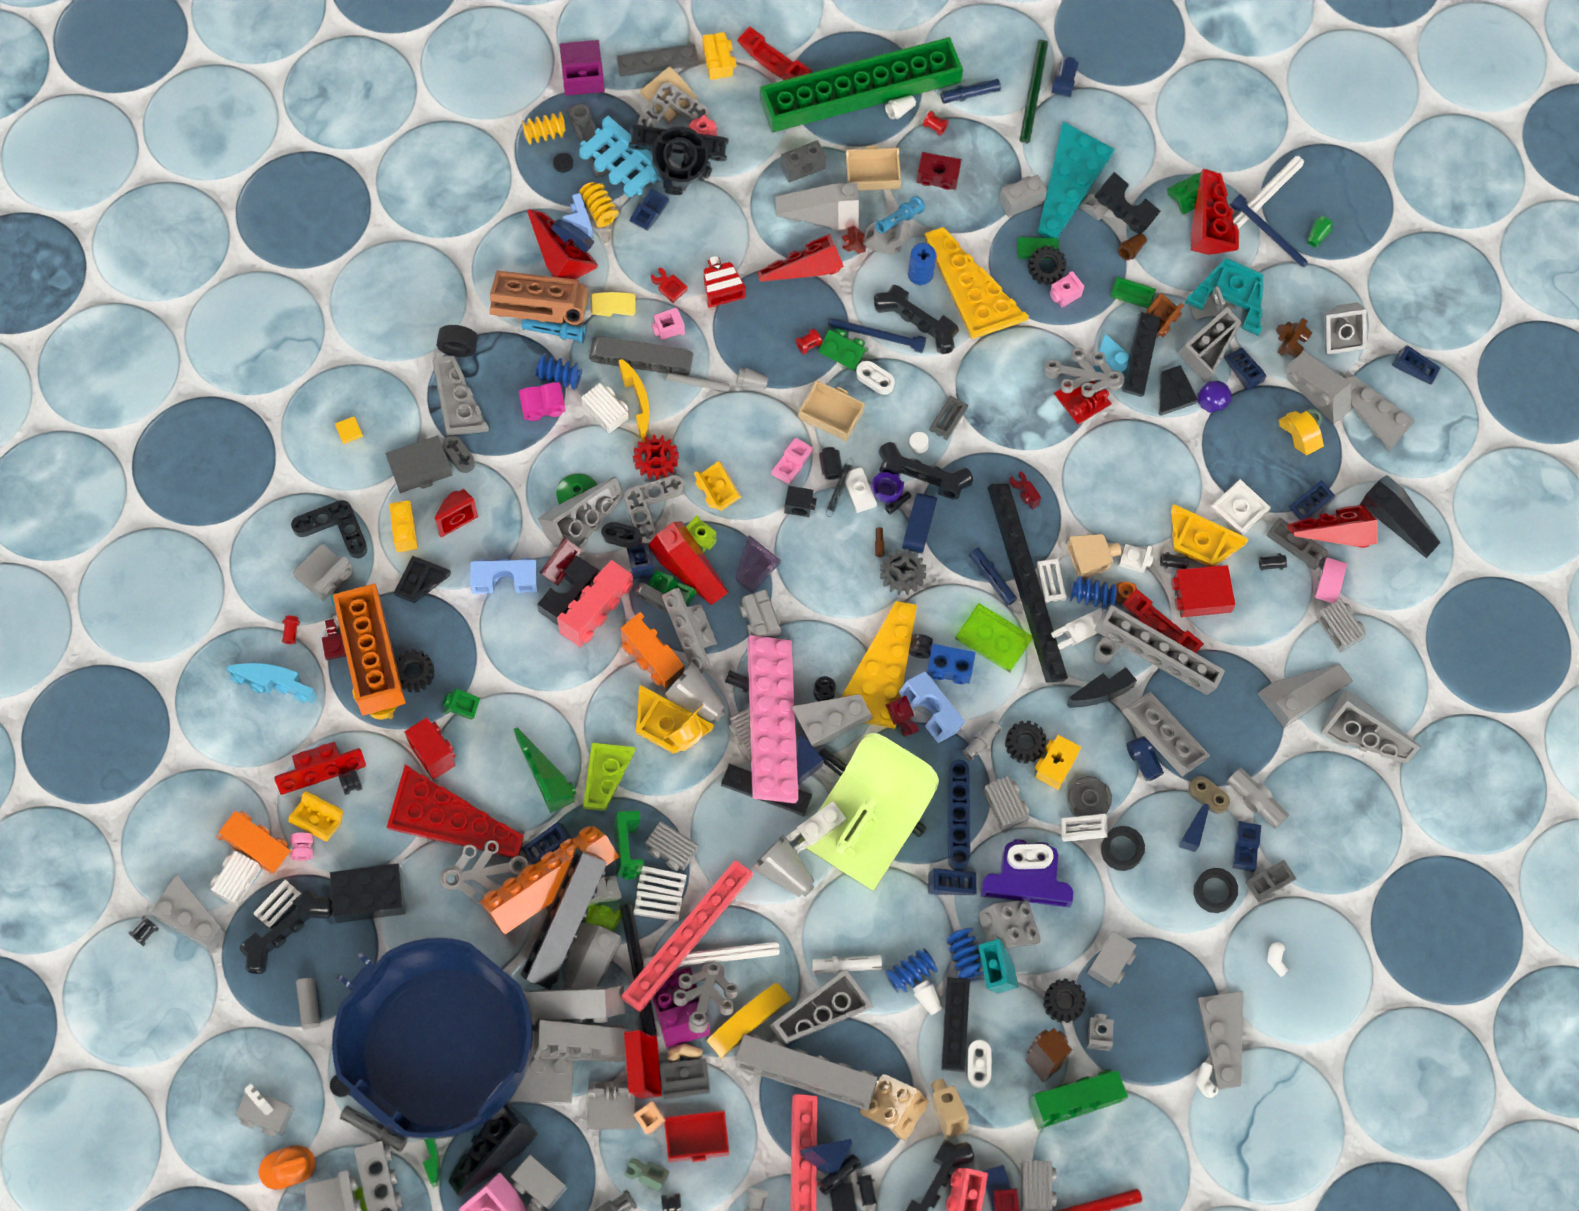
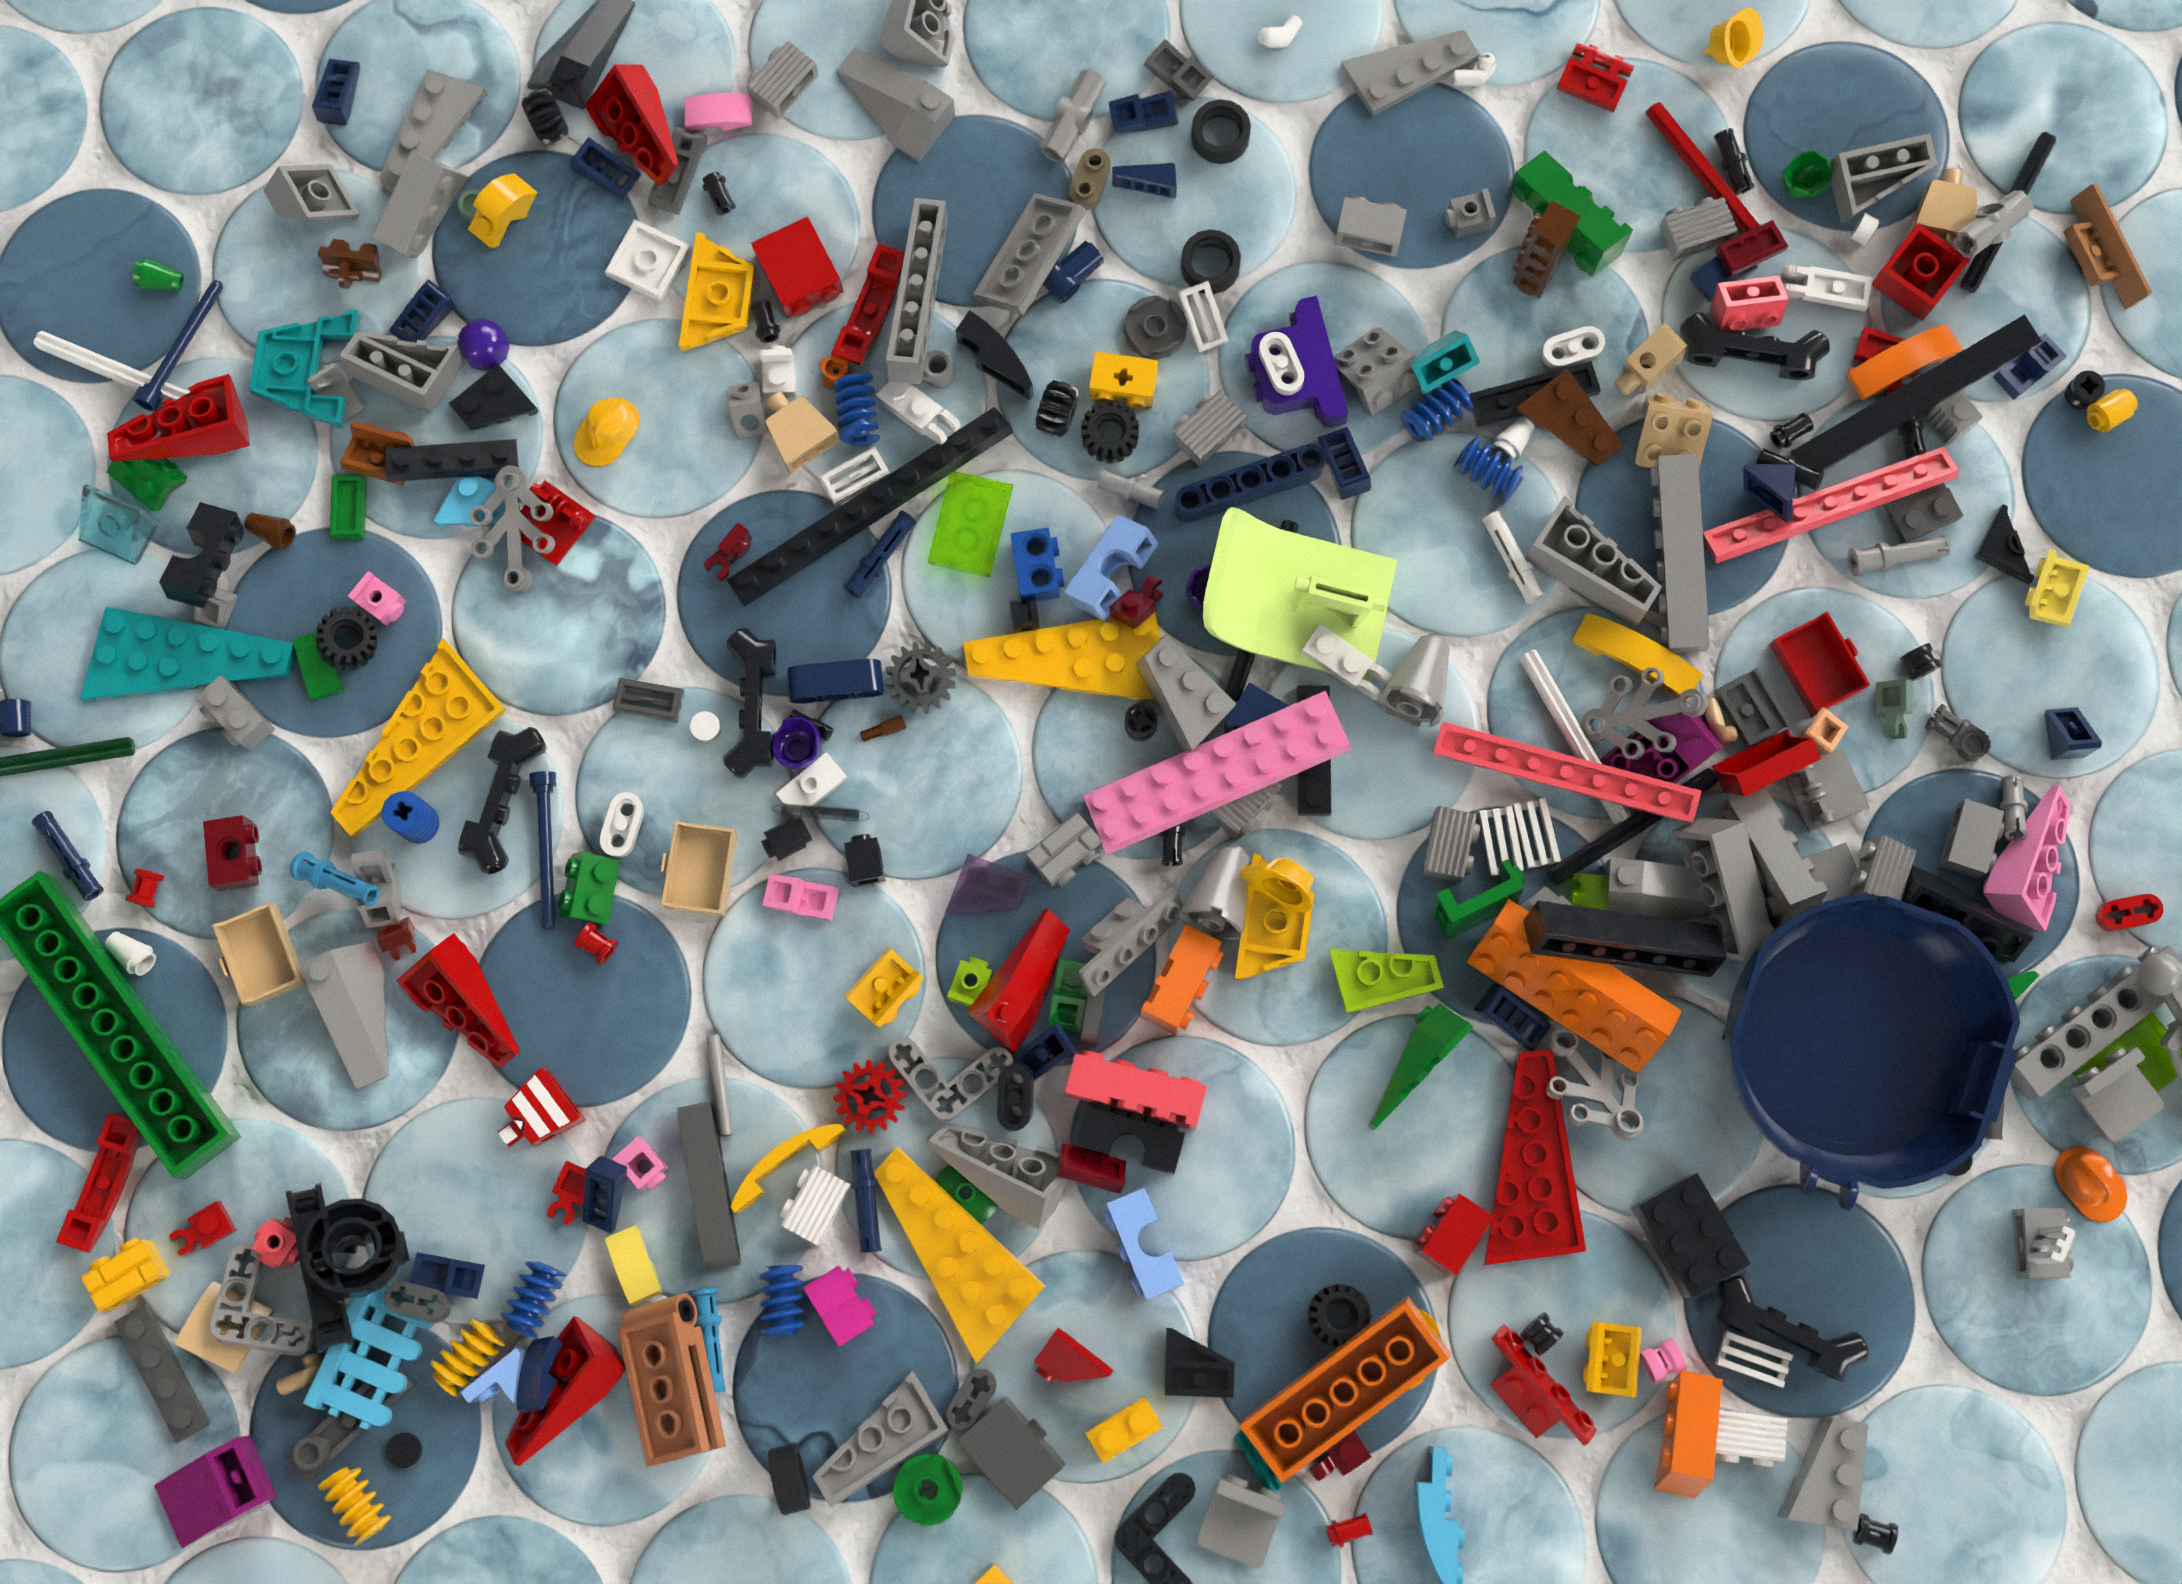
camera: 105 degrees left, 10 degrees up
(308, 1003) = (1873, 1251): light grey brick -> none
(422, 424) = (946, 1497): none -> green plate
(461, 703) = (1363, 1224): green bracket -> none
(535, 476) = (968, 1266): none -> yellow wing
(539, 1111) = (1883, 868): none -> light grey brick
(590, 434) = (865, 1198): none -> dark blue pin
(615, 246) = (532, 1298): none -> blue piece
(623, 120) = (301, 1378): none -> tan arm
(641, 189) = (419, 1294): none -> dark grey beam
(660, 298) = (613, 1177): none -> dark blue slope
(728, 102) = (207, 1227): none -> red plate
(751, 379) = (689, 1006): light grey cone -> none
(803, 161) = (282, 1065): dark grey brick -> none
(928, 1039) = (1571, 417): none -> reddish brown wing
(1050, 711) = (1057, 408): none -> black gear
(1064, 987) = (1451, 253): black tyre -> none
(1121, 529) = (746, 400): none -> light grey bracket
(1133, 449) = (606, 431): none -> yellow piece
(1165, 167) = (115, 525): none -> clear light blue slope
(1170, 1159) = (1594, 84): none -> red plate
(1357, 474) = (545, 116): none -> black gear

